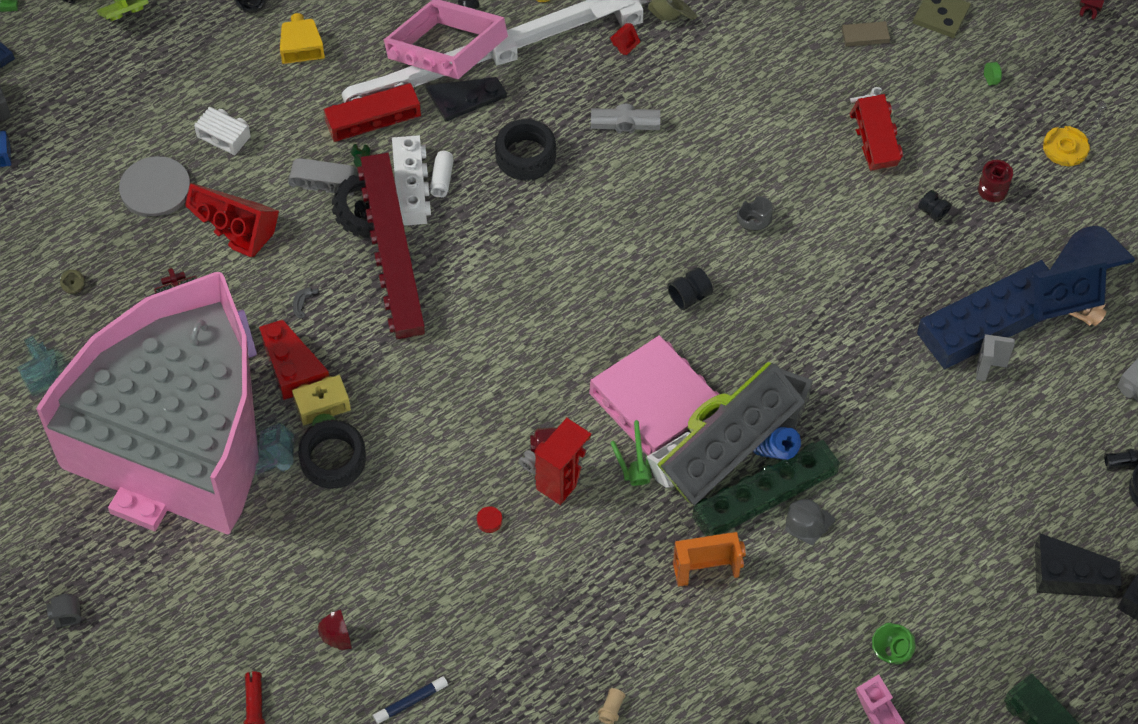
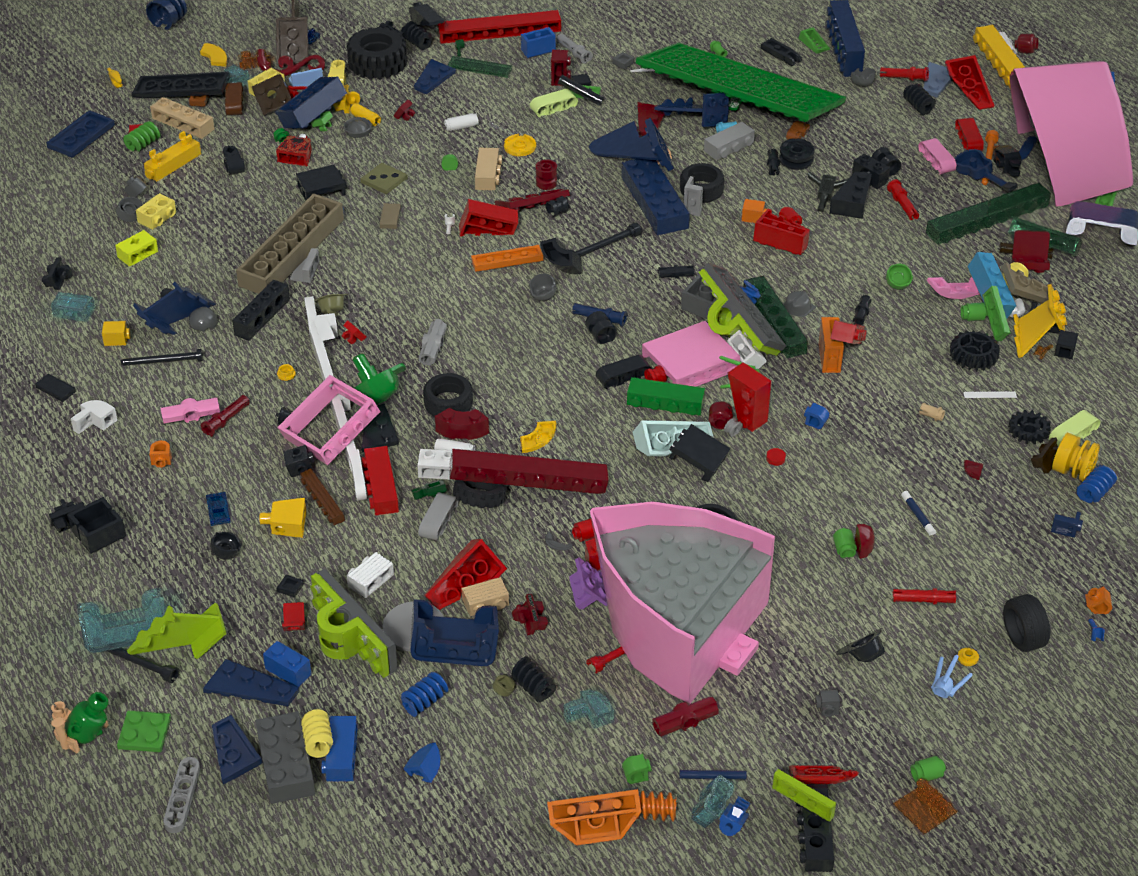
camera: 80 degrees left, 15 degrees down
(35, 462) = (685, 716): none -> dark red piece
(47, 208) = (423, 693): none -> blue piece
(61, 61) = (249, 684): none -> dark blue wing
(76, 303) = (533, 679): none -> black piece
(82, 83) = (287, 664): none -> blue brick
(133, 123) = (346, 623): none -> lime piece
(133, 215) = (454, 638): none -> dark blue windscreen
(151, 79) = (293, 616): none -> red bracket
(153, 640) = (865, 649): none -> black piece
(200, 242) = (485, 594): none -> tan brick
(205, 66) = (290, 586): none -> black tile
(321, 326) = (583, 530): none -> red brick
(331, 605) = (844, 543): none -> bright green brick
(341, 66) = (322, 497): none -> reddish brown piece
(383, 26) = (298, 460): none -> black brick
(464, 423) = (700, 450): none -> black panel
(477, 176) = (462, 425): none -> dark red brick
(481, 257) = (539, 437): none -> yellow tile
(492, 390) = (656, 437): none -> light aqua wedge
(517, 71) = (375, 385): none -> green piece
(571, 558) = (816, 416): none -> blue plate
(573, 377) = (665, 396): none -> green brick
(609, 358) = (655, 374): none -> red wheel
(614, 325) = (622, 371): none -> black beam
(720, 572) = (848, 332): none -> red brick
(723, 294) = (614, 316): none -> dark blue pin
(811, 169) = (507, 258): none -> orange plate
(813, 602) = (862, 310): none -> black pin
(818, 223) = (563, 259): none -> black brick
(837, 363) = (676, 271): none -> black pin
(909, 298) = (632, 230): none -> black piece
(942, 177) = (531, 199): none -> dark red wing
(949, 476) = (780, 233): none -> red wedge
(991, 115) = (488, 169): none -> tan brick
(996, 442) = (752, 210): none -> orange brick
(998, 491) = (790, 215): none -> red brick
(1034, 388) = (706, 173): none -> black tyre
(1086, 534) = (826, 188): none -> pearl dark grey piece
(1091, 71) = (461, 122): none -> white piece
(1102, 638) = (900, 195): none -> red pin

